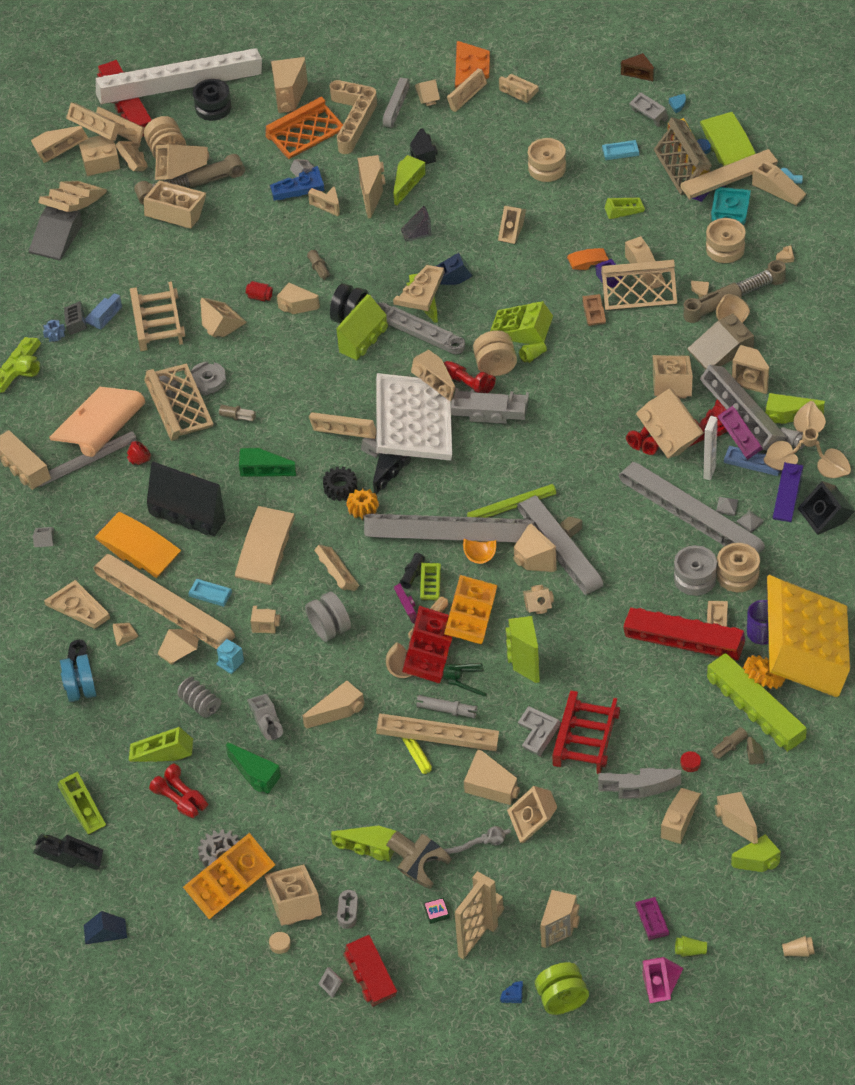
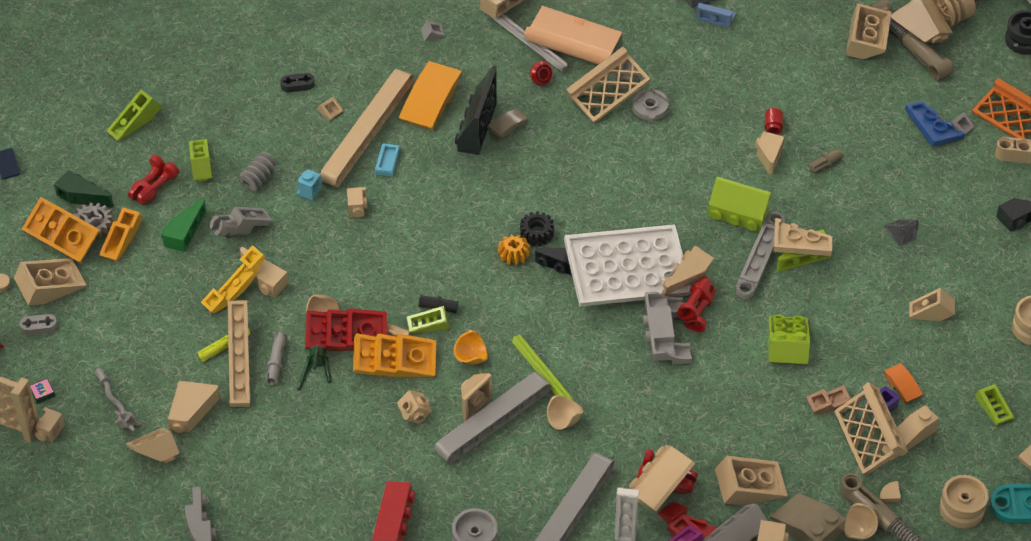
camera: 75 degrees right, 0 degrees up
(68, 851) = (77, 117): black plate -> none
(76, 678) = (262, 81): dark azure wheel -> none
(78, 604) = (354, 71): tan wing -> none
(140, 312) = (713, 38): tan fence -> none
(172, 861) = (77, 190): none -> dark green slope
(177, 645) = (320, 146): tan slope -> none
(219, 318) = (729, 97): tan slope -> none
(237, 413) = (610, 134): dark tan axle -> none
(246, 822) = (121, 234): none -> light orange slope
(261, 463) = (548, 162): green slope -> none
(264, 545) = (446, 185): tan slope -> none
(326, 202) = (916, 150): tan slope -> none
(328, 616) = (360, 243): light grey wheel -> none
(336, 568) = (429, 244): tan plate -> none
(343, 425) = (603, 209): tan tile -> none
(344, 726) = (237, 283): none -> yellow slope
(345, 300) = (771, 180): black wheel -> none
(366, 841) = (110, 331): lime slope -> none
(371, 181) = (942, 176): tan slope -> none
(407, 602) = (396, 303): magenta plate -> none
(408, 174) = (970, 207): lime slope -> none
(416, 855) = (90, 360): dark tan connector -> none
(444, 527) = (494, 321): light grey beam -> none
(455, 270) = (844, 267): dark blue slope -> none
(495, 353) = (730, 317): tan wheel -> none
(523, 647) = (337, 399): lime slope -> none
(532, 351) = (751, 353): lime cone -> none
(541, 727) = (256, 436): light grey plate -> none
(559, 918) = (27, 478): tan slope -> none
(569, 721) = (257, 456): red fence -> none
(571, 490) = (563, 412): none -> tan helmet
(571, 525) = (521, 423): dark tan slope -> none

